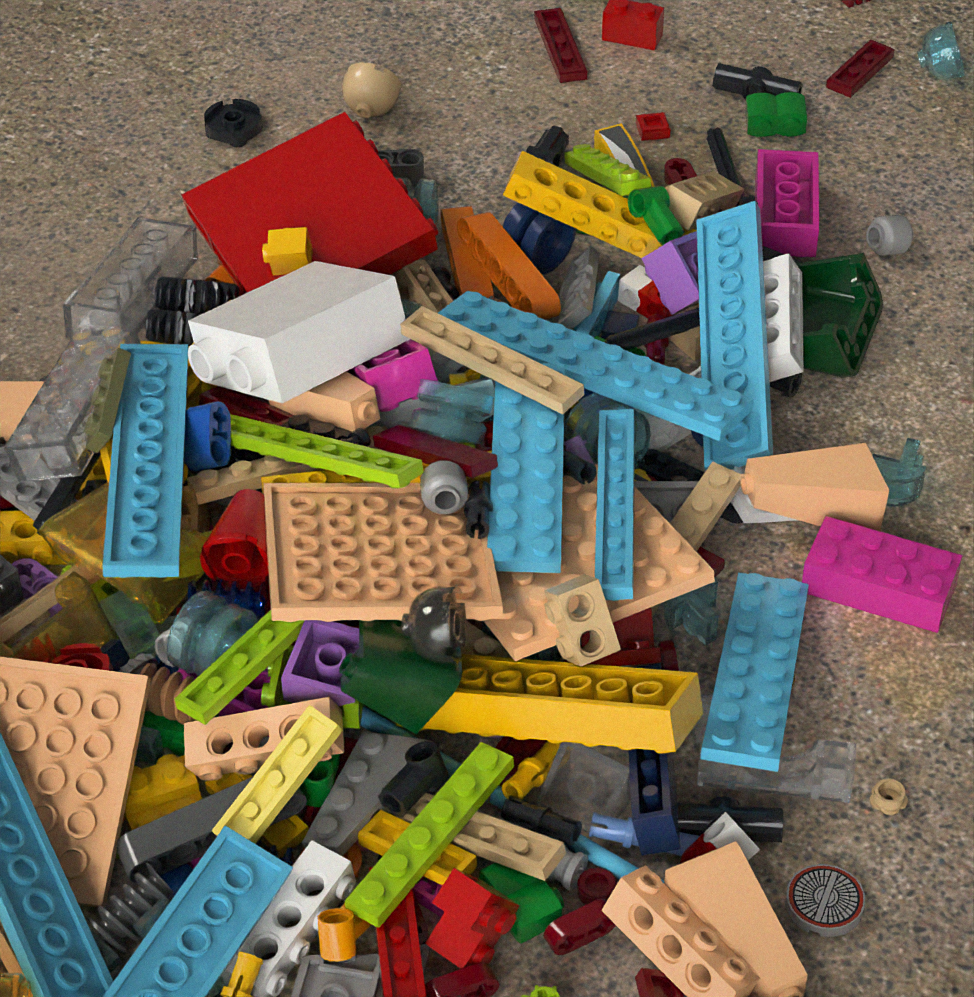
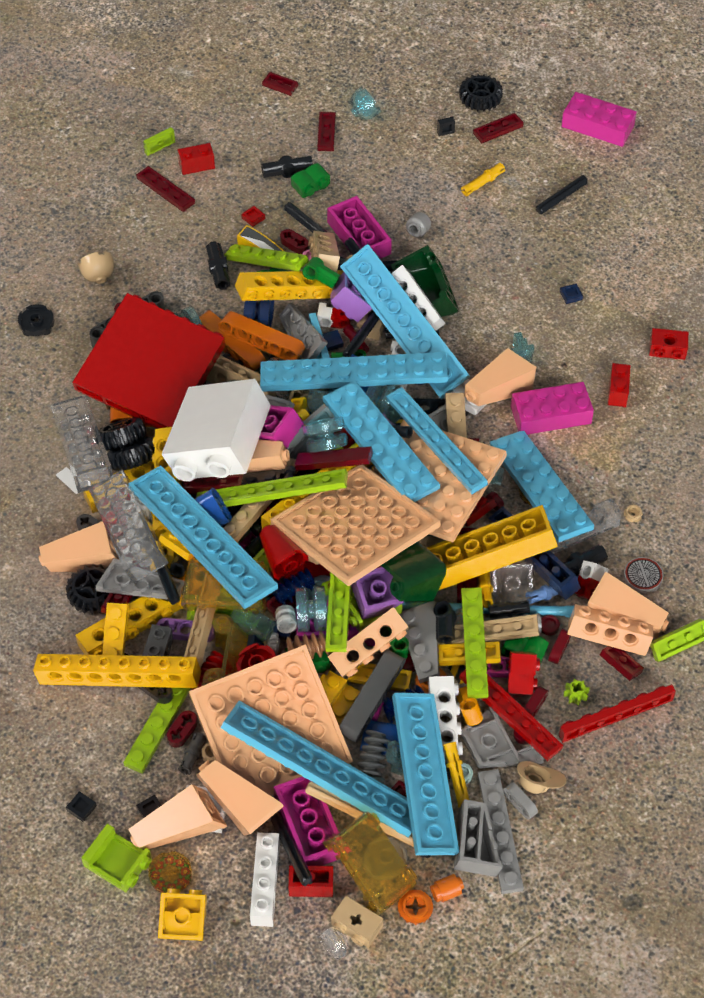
camera: 35 degrees left, 10 degrees up
(106, 400) = (155, 517): olive plate -> none
(280, 775) = (398, 656): light yellow plate -> none
(287, 250) = (161, 386): yellow brick -> none
(436, 624) = (423, 546): clear smoke cylinder -> none
(443, 487) = (360, 476): light grey head -> none
(477, 509) = (381, 478): black pin -> none
(493, 360) = (325, 397): tan plate -> none
(590, 615) = (473, 507): tan brick -> none

